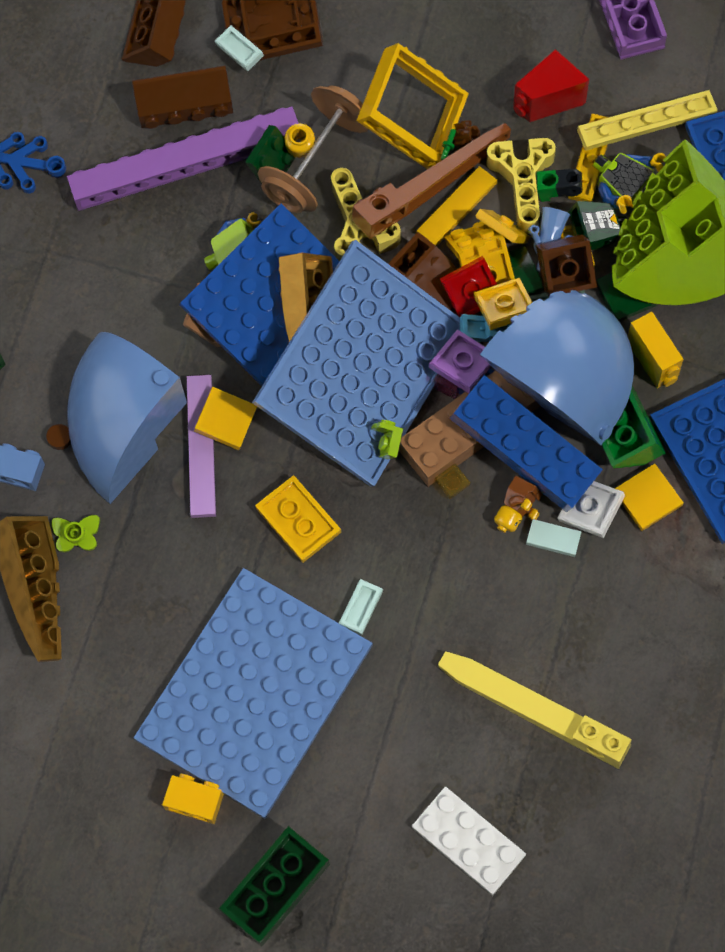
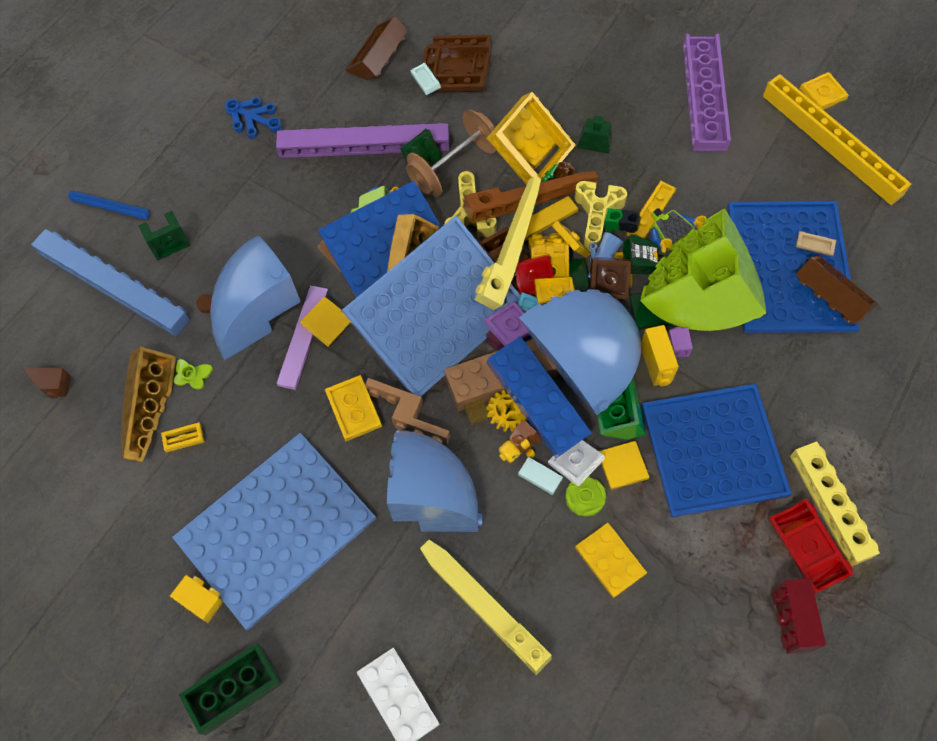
camera: 15 degrees right, 5 degrees down
(102, 622) = (199, 437): none -> yellow tile
(183, 97) = (375, 99): reddish brown slope -> none
(299, 140) = (443, 144): yellow head -> none
(361, 607) = (375, 487): light aqua tile -> none
(367, 505) = (406, 411): none -> medium nougat bracket
(390, 441) = (436, 370): lime bracket -> none
(408, 102) = (529, 138): none -> yellow plate
(431, 586) = (430, 486): none -> medium blue brick
(433, 296) = (502, 272): none -> light yellow piece
(479, 471) = (497, 408): none -> yellow gear
(490, 73) = (596, 135): none -> dark green torso
(550, 88) = (635, 155): red slope -> none
(616, 550) = (587, 498): none -> lime tile
(646, 120) = (698, 193): light yellow plate -> none
(665, 614) = (610, 560): none -> yellow plate
(675, 323) = (680, 341): none -> medium lavender brick

